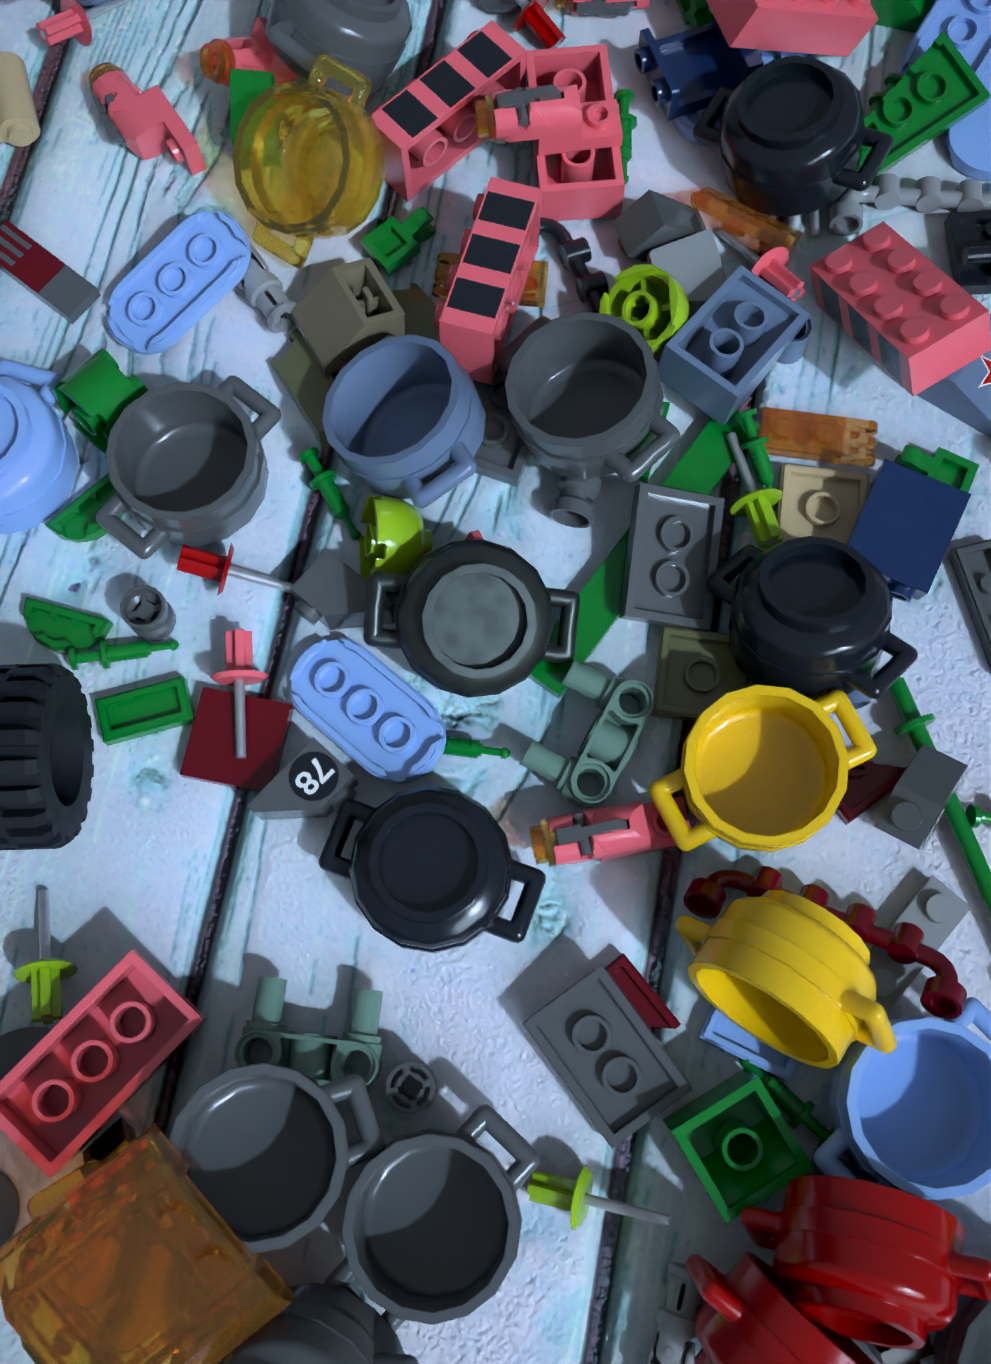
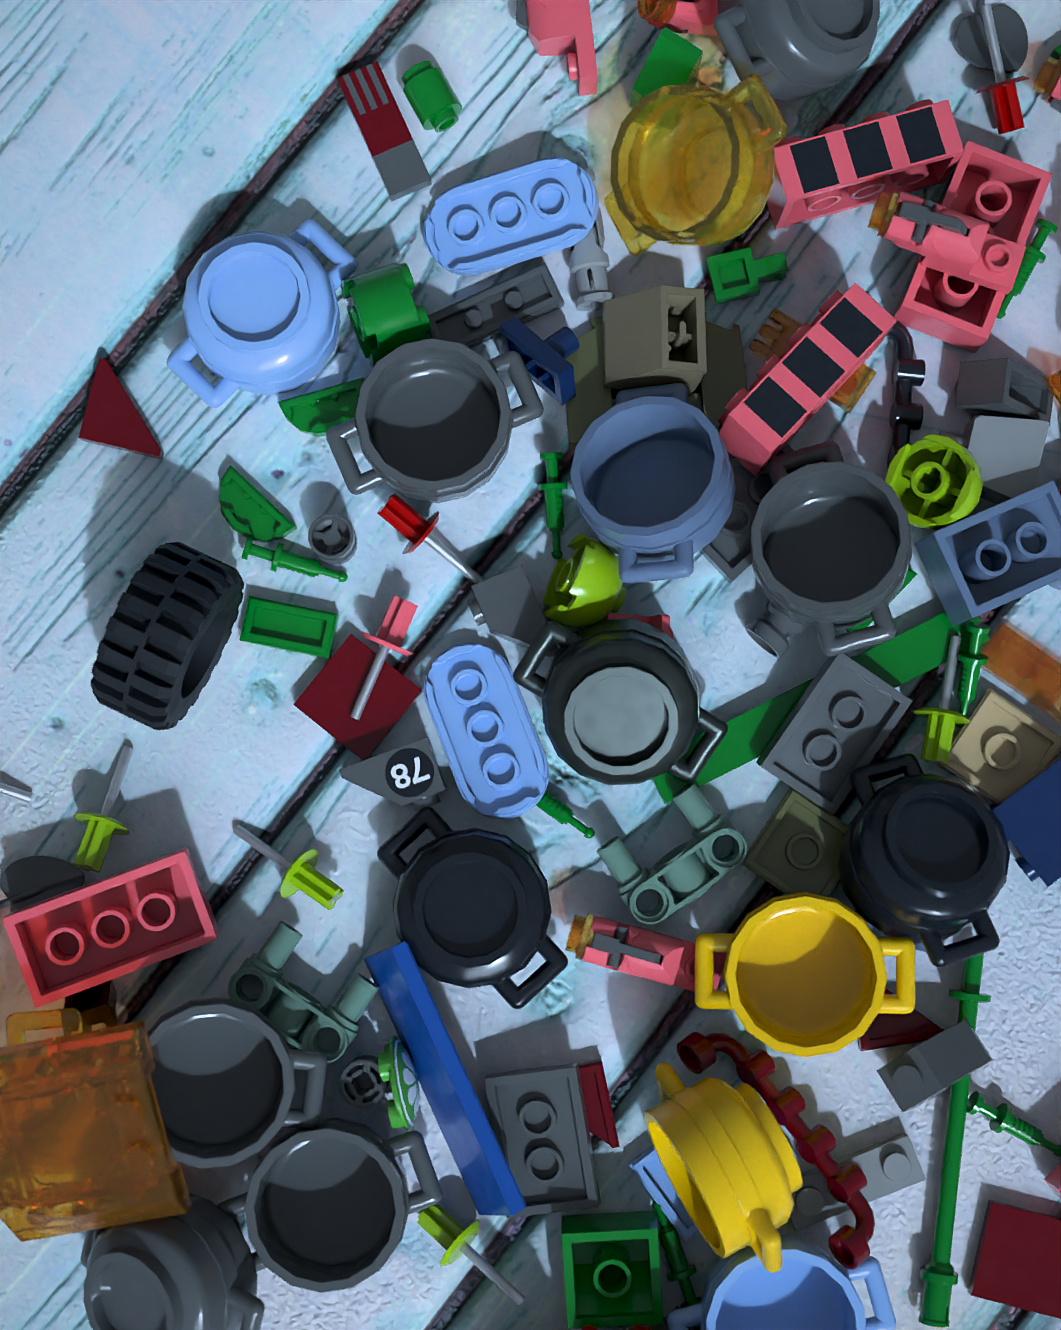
camera: 25 degrees right, 10 degrees up
(65, 224) = (431, 96): none -> green brick
(213, 352) = (480, 315): none -> dark grey tile
(255, 923) = (299, 873): none -> lime piece
(267, 374) = (544, 358): none -> dark blue tile
(435, 1053) = (399, 1069): none -> bright green dish
(488, 1045) = (445, 1082): none -> blue tile

